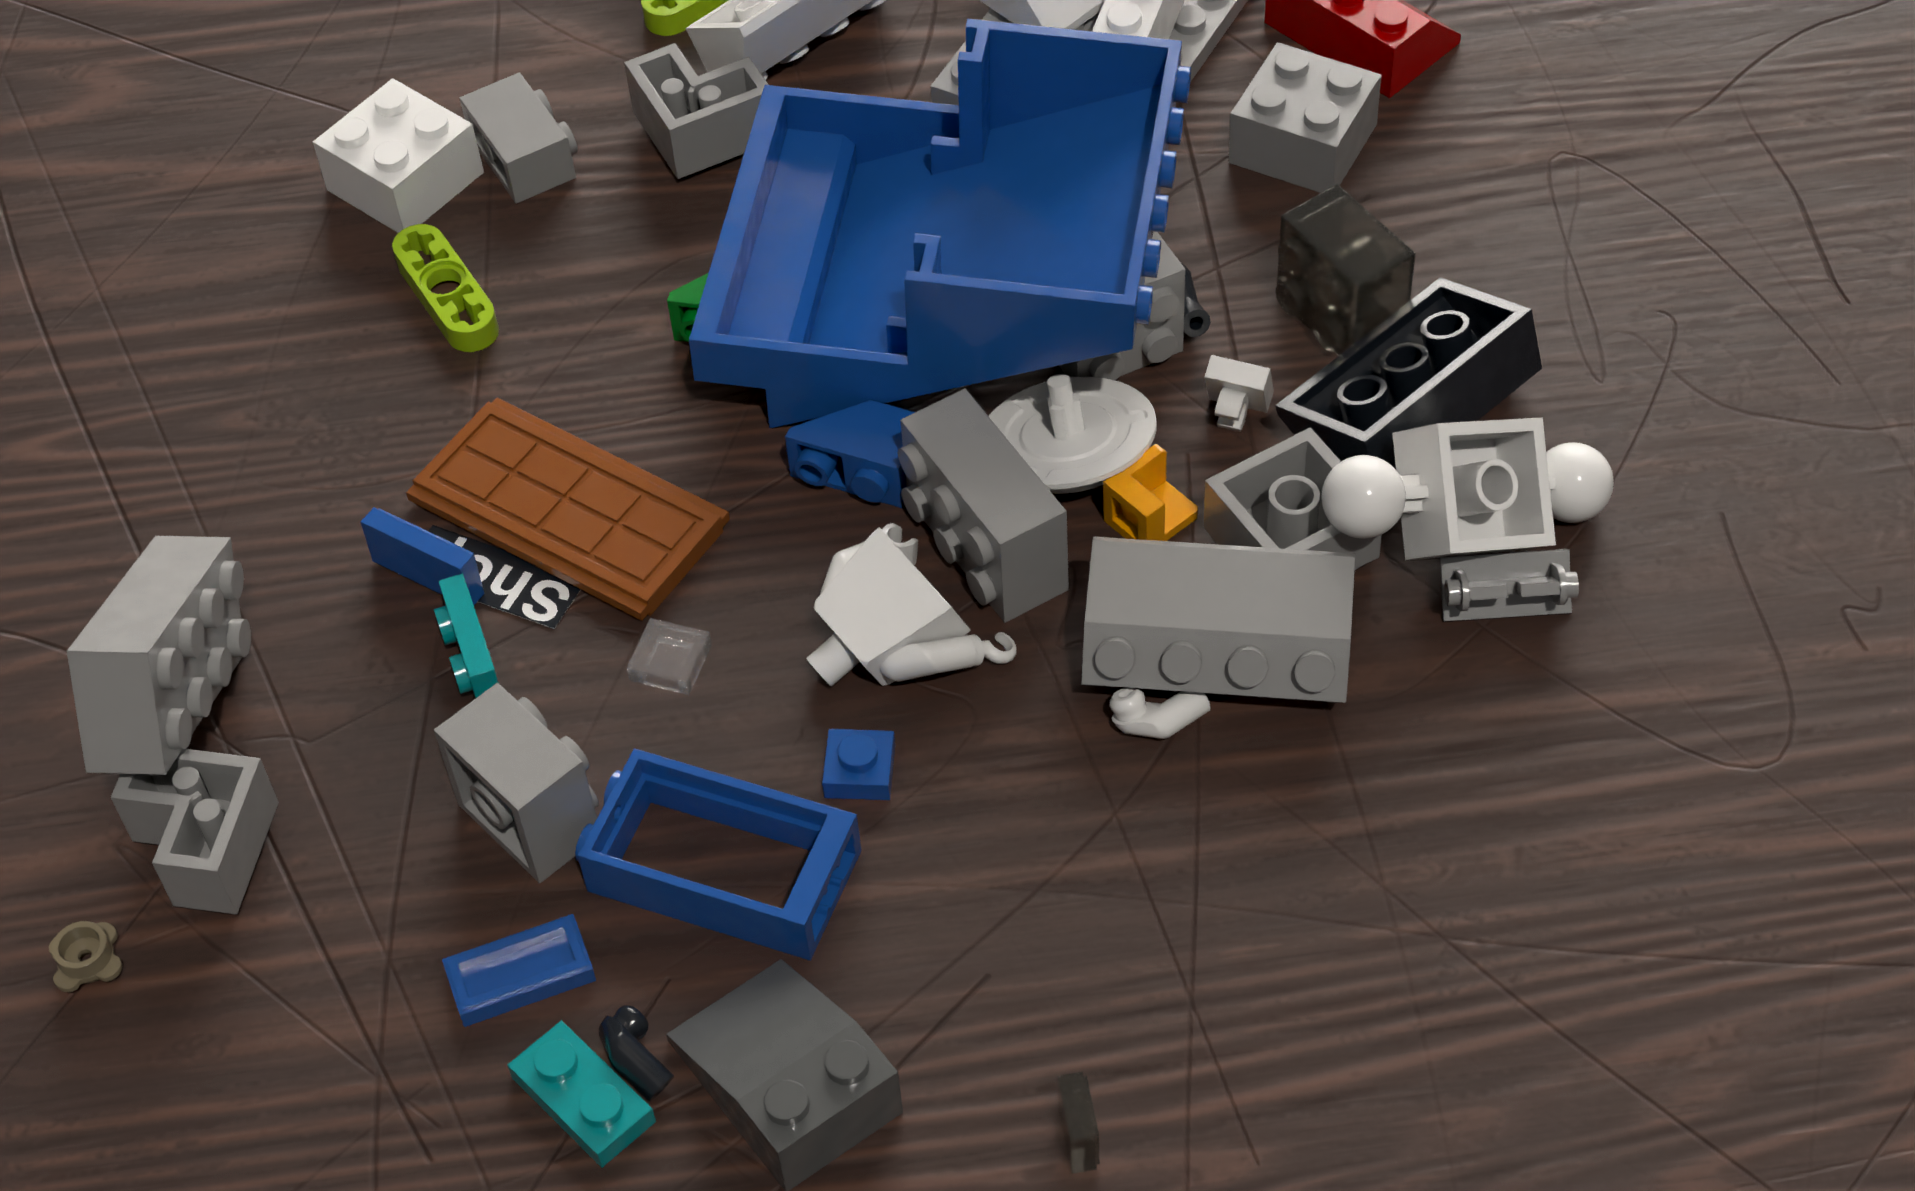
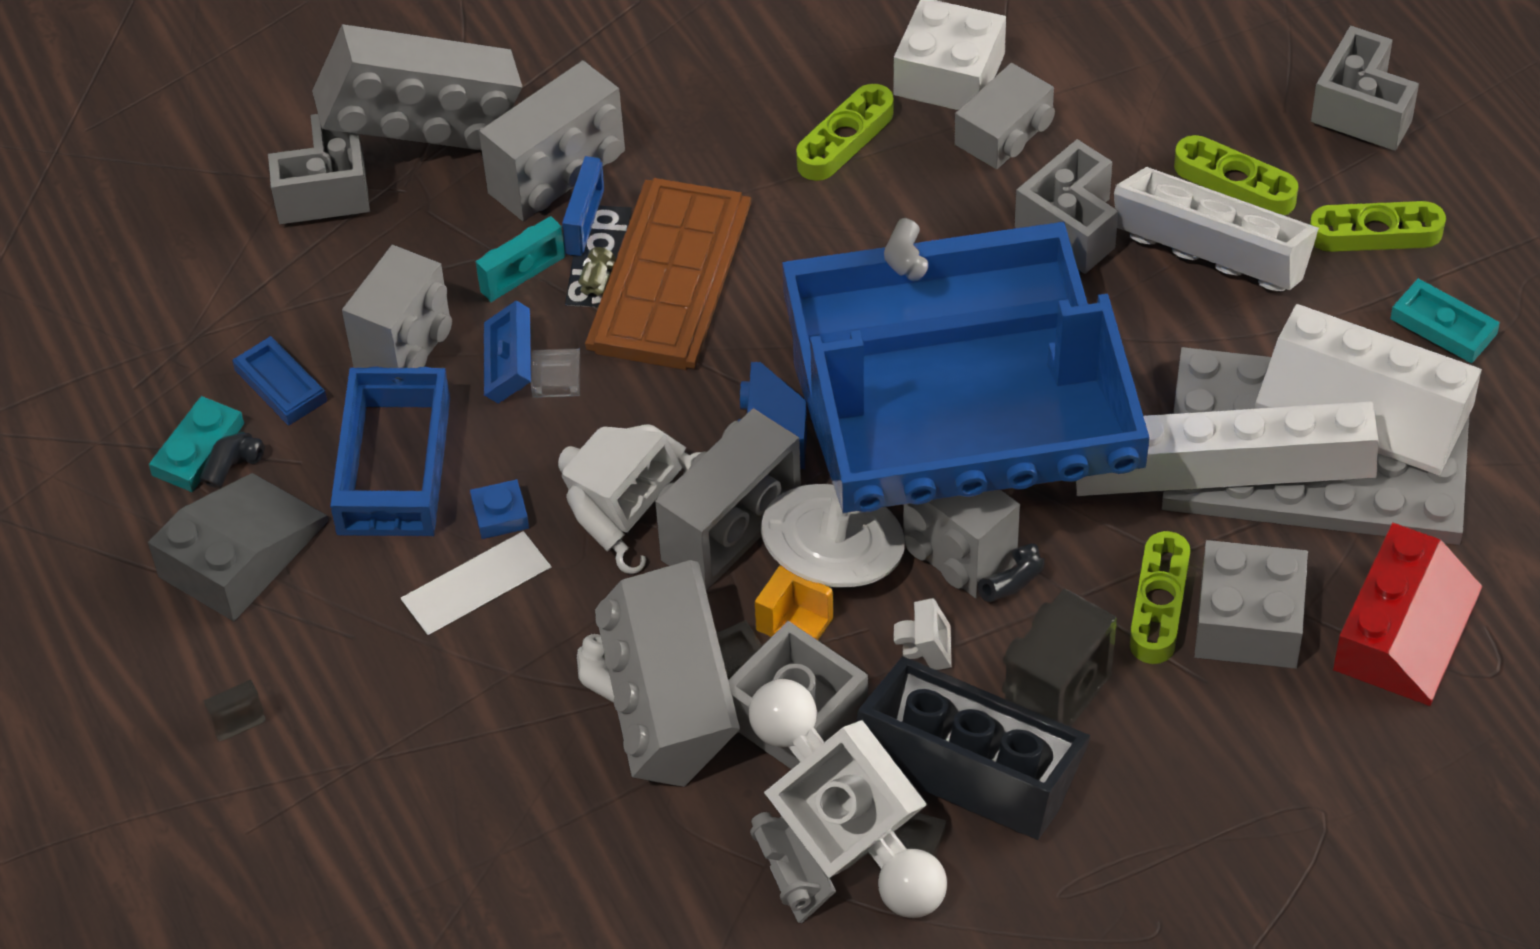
camera: 70 degrees right, 0 degrees up
(81, 940) = (225, 161): dark tan plate -> none
(313, 549) = (541, 143): none -> light grey brick
(536, 575) = (594, 273): none -> olive piece
(619, 691) = (507, 352): none -> blue plate
(748, 221) = (902, 254): none -> light grey arm
(958, 821) = (475, 582): none -> white sticker
(1217, 179) = (1168, 614): none -> lime beam

